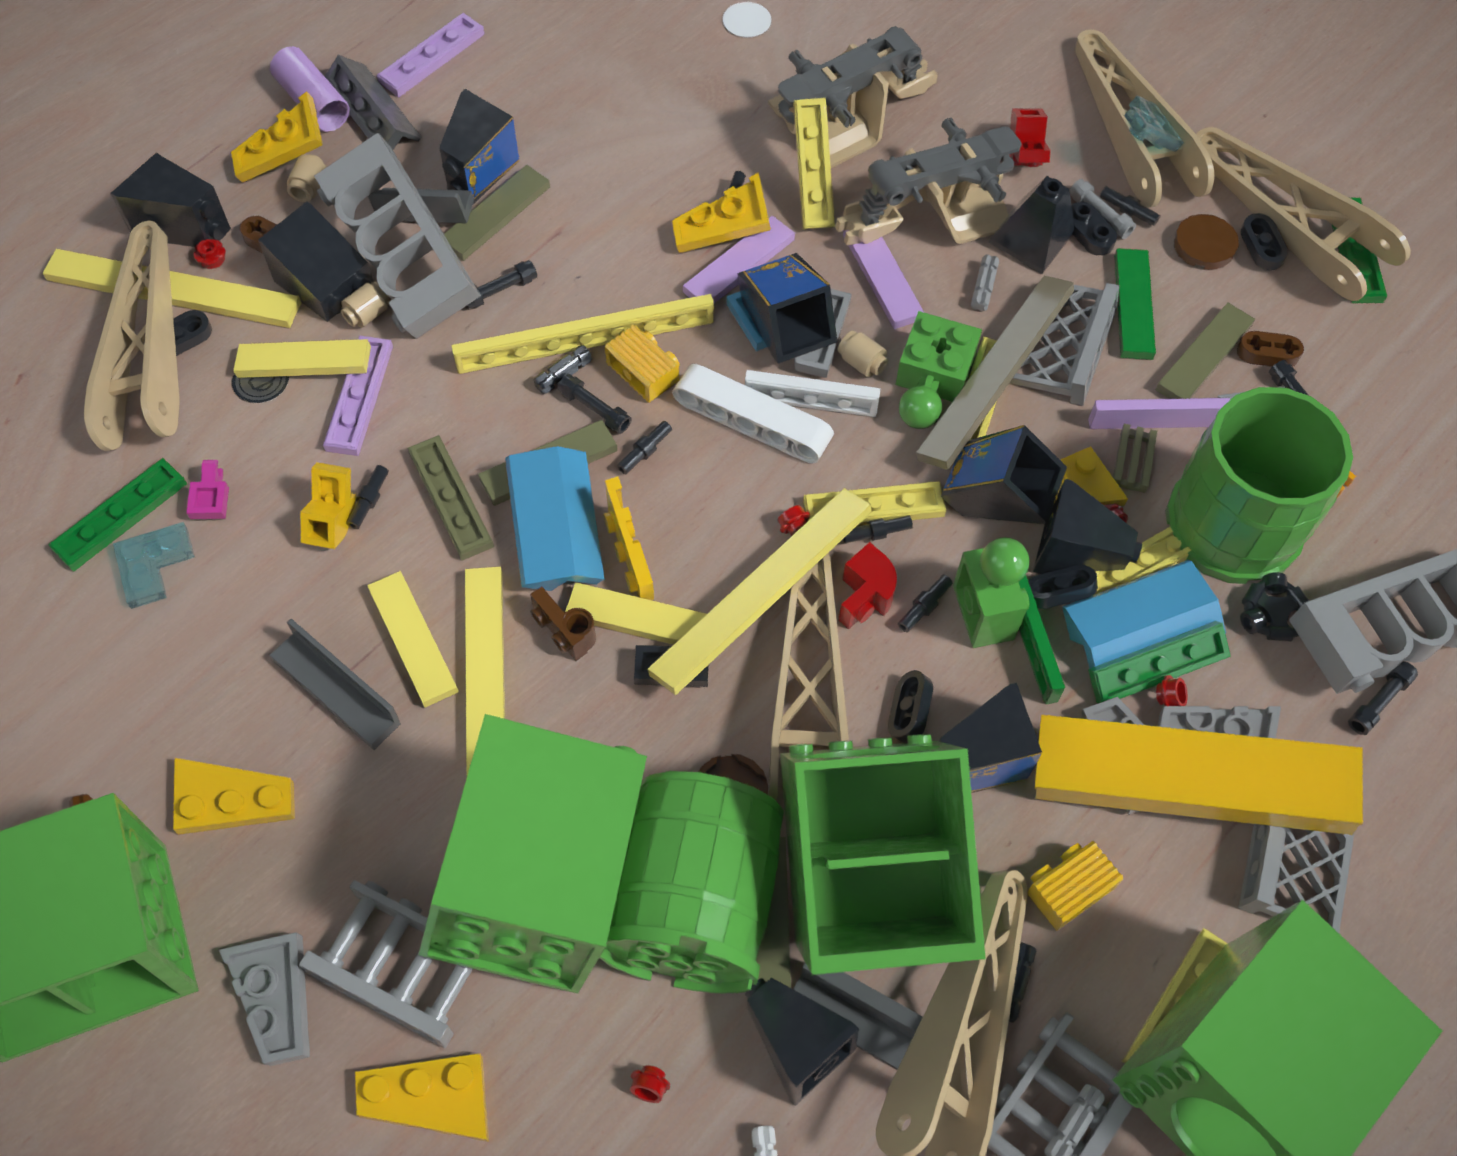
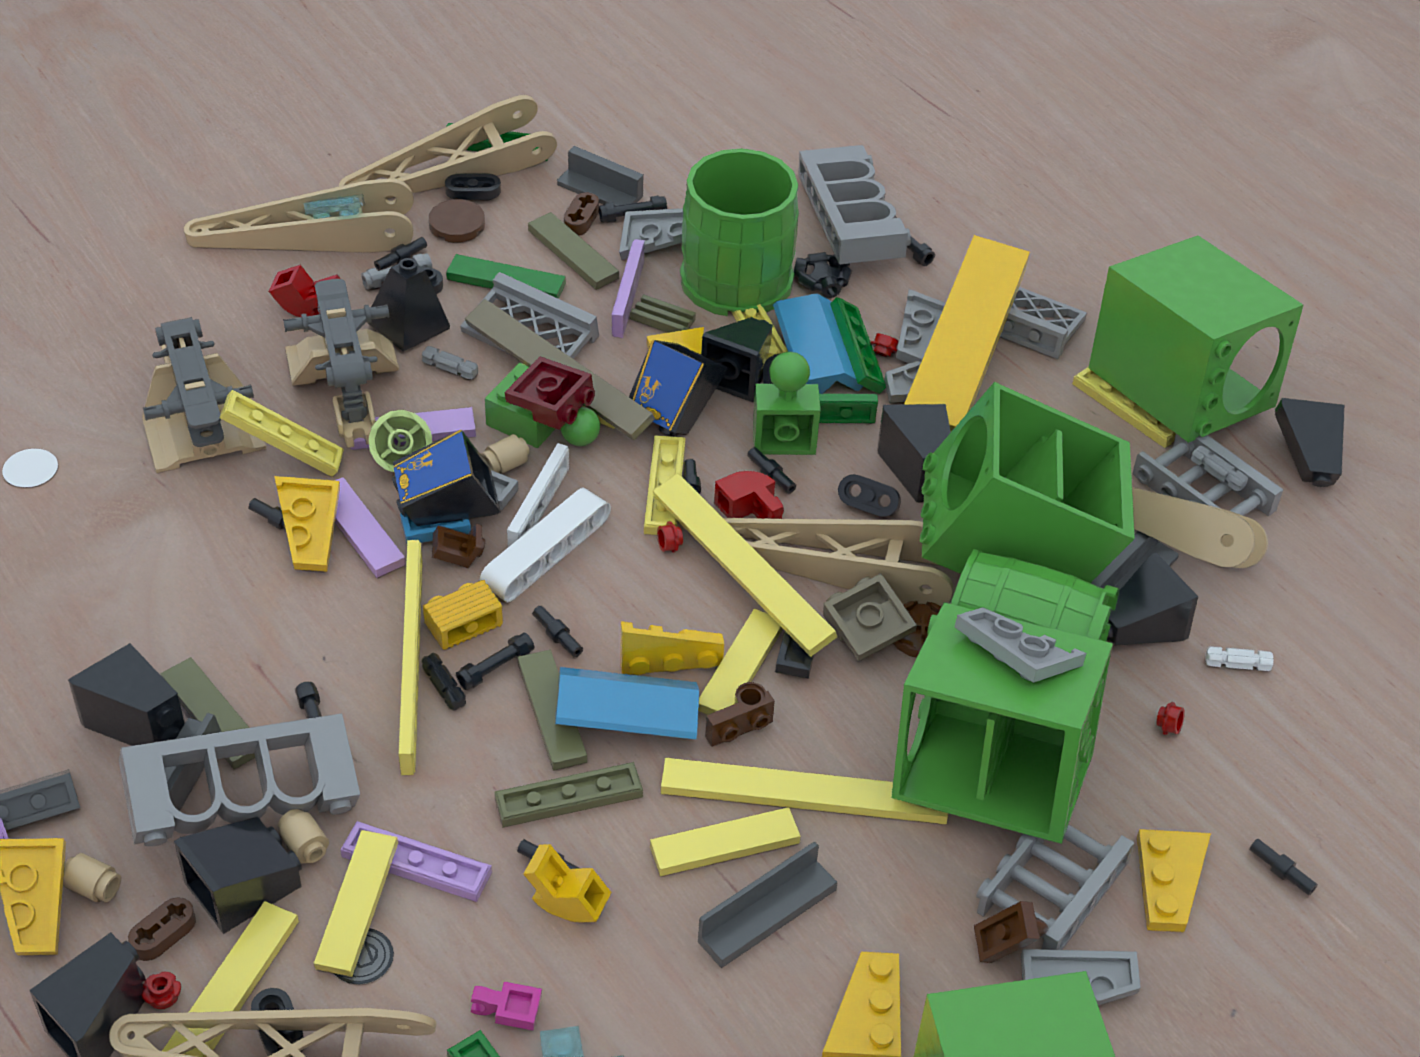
camera: 80 degrees left, 15 degrees down
(306, 917) = (1008, 931): none -> reddish brown tile
(557, 830) = (1029, 655): none -> light grey wing
(718, 725) = (868, 616): none -> dark tan plate
(728, 339) = (458, 546): none -> reddish brown bracket
(842, 257) = (389, 427): none -> yellowish green cylinder
(931, 359) = (552, 392): none -> dark red plate
(1331, 356) = (601, 177): none -> dark grey panel

